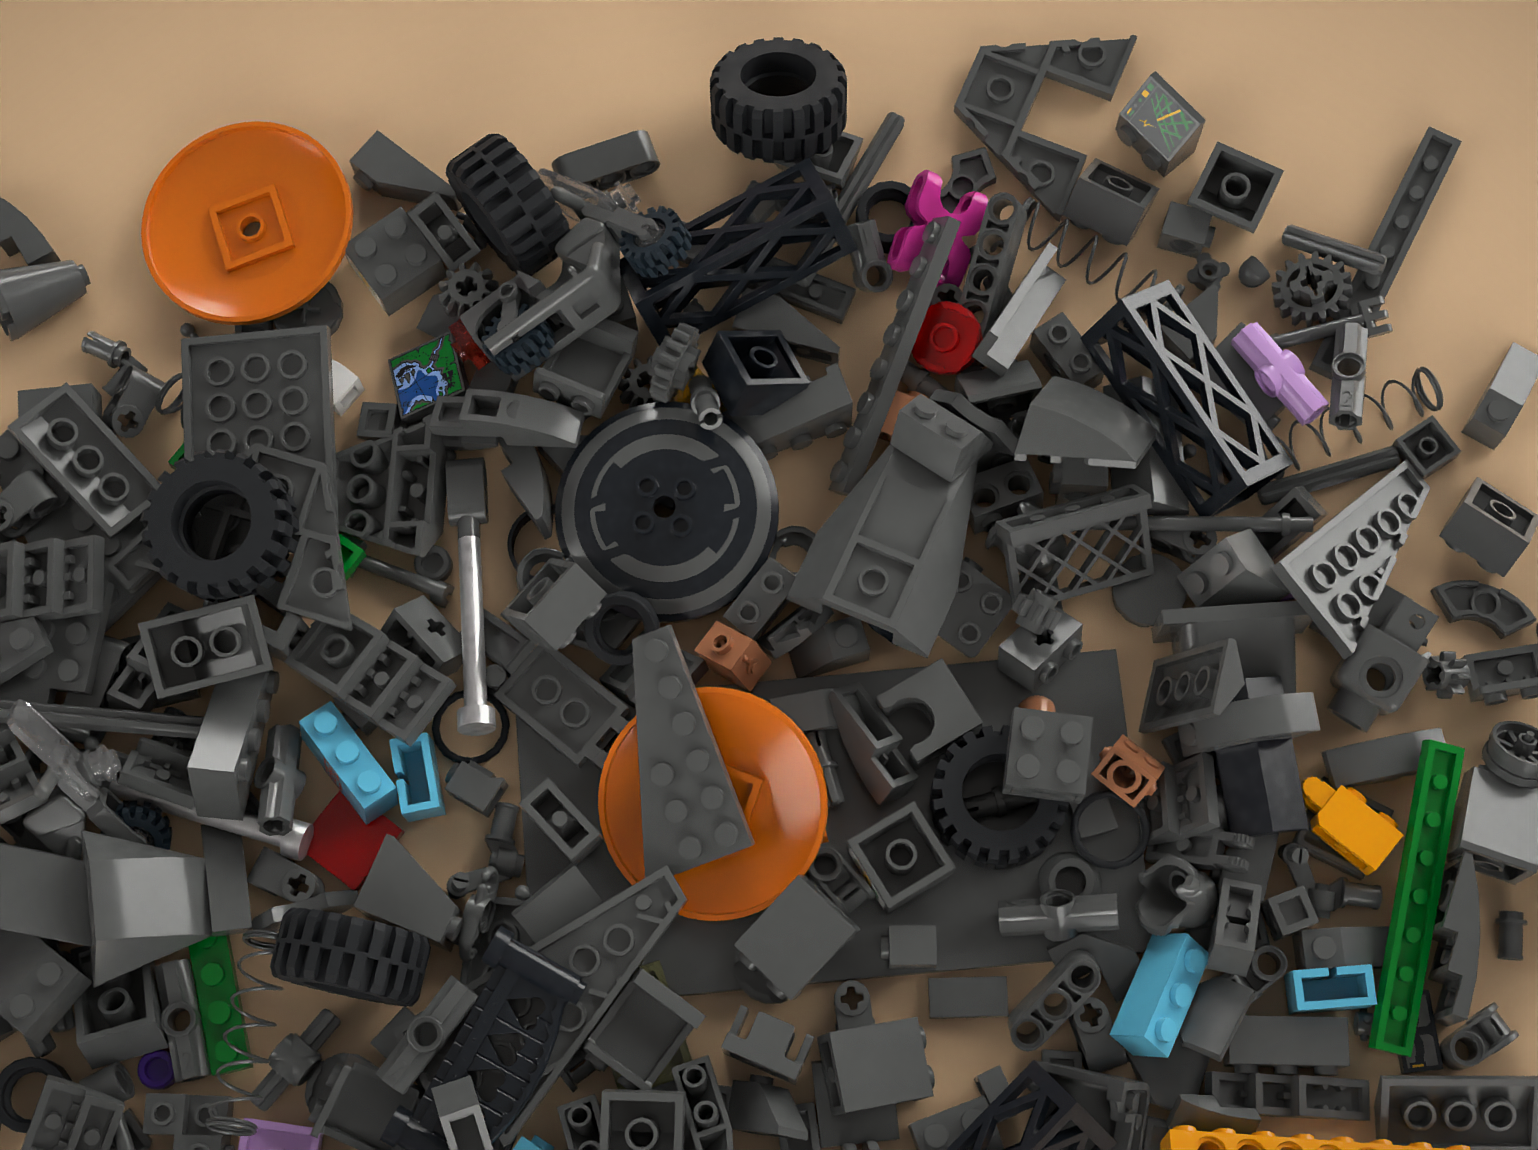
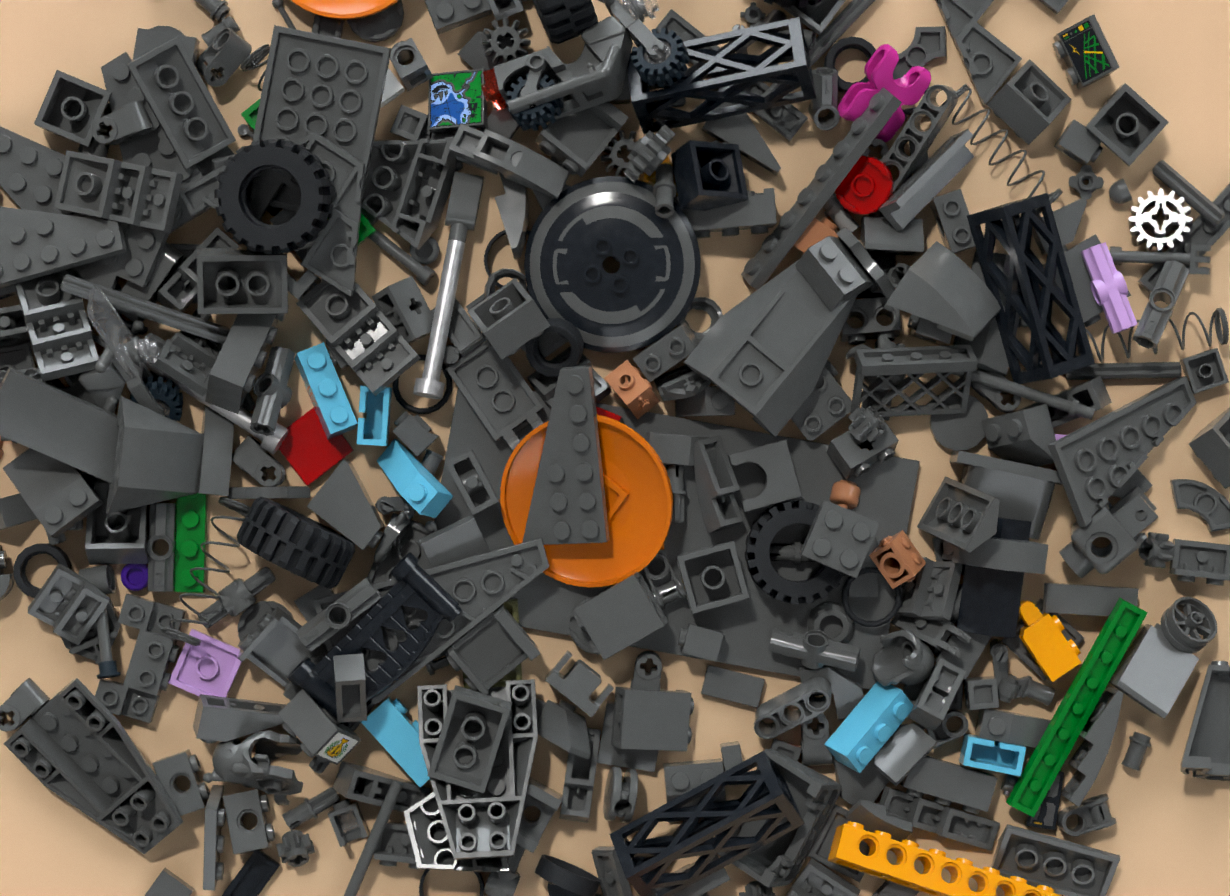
camera: 20 degrees right, 15 degrees up
(361, 352) = (413, 73): none -> dark grey brick
(488, 842) = (413, 480): none -> medium azure slope

